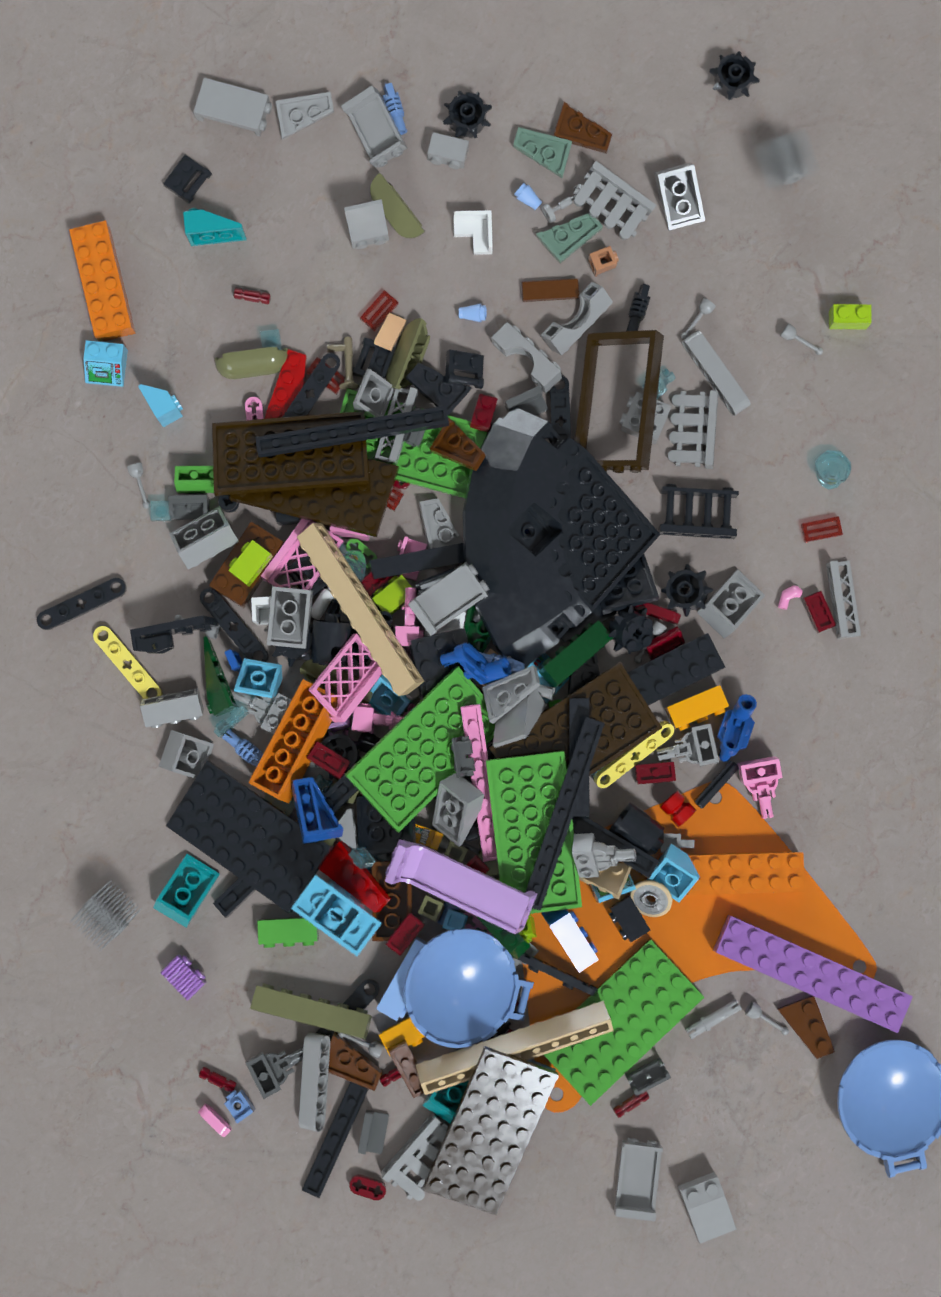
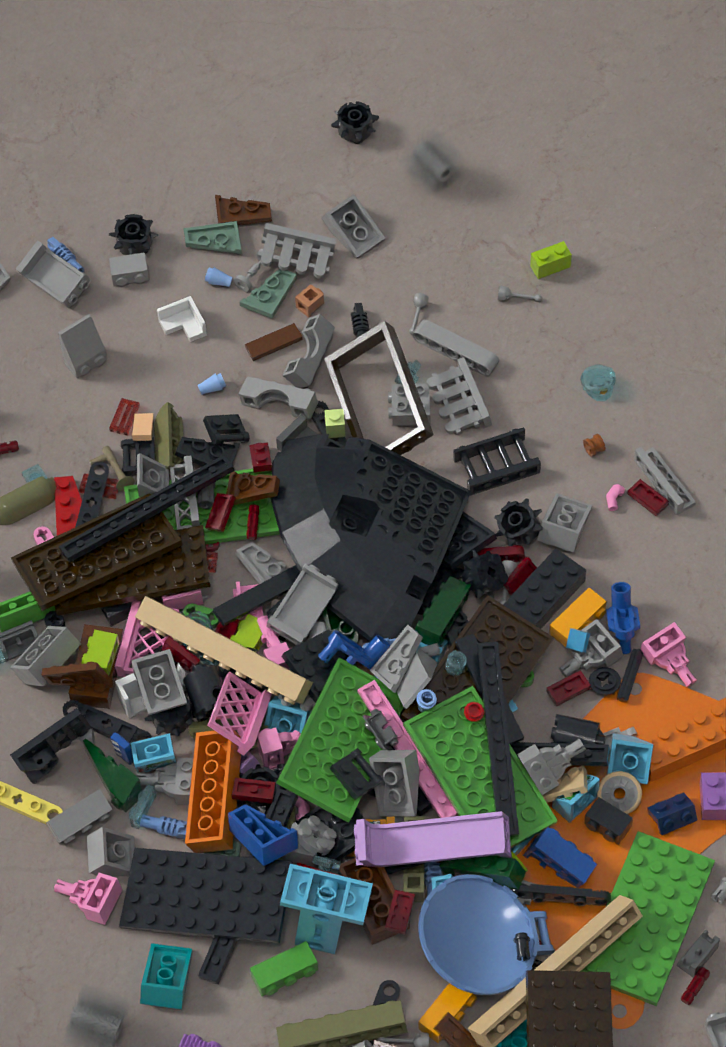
camera: 20 degrees left, 25 degrees down
(154, 792) = (93, 896): none -> bright pink brick
(217, 575) = (83, 673): none -> reddish brown wing
(318, 585) = (181, 654): none -> dark red plate
(353, 827) = (325, 836): none -> light grey plate
(393, 1000) = (420, 974): light blue brick -> none
(395, 208) = (109, 333): olive brick -> none
(416, 793) = (352, 778): none -> black plate
(420, 459) = (220, 512): none -> dark red plate
(446, 480) = (252, 525): none -> dark red axle
(496, 1011) = (522, 946): none -> black pin
(517, 755) = (426, 699): none -> light blue cone
(553, 778) = (474, 711): none -> red plate
(558, 718) = (456, 668): none -> clear light blue wheel
(565, 410) = (335, 423): none -> yellowish green brick
(626, 761) = (533, 691): light yellow piece -> none
(677, 808) = (604, 707): red wheel -> none
(684, 736) = (578, 640): none -> dark azure tile
(689, 935) = (673, 813): none -> dark blue bracket
(691, 771) = (600, 675): none -> black gear
(796, 535) = (594, 445): none -> dark orange wheel
(806, 532) = (616, 438): clear red tile -> none

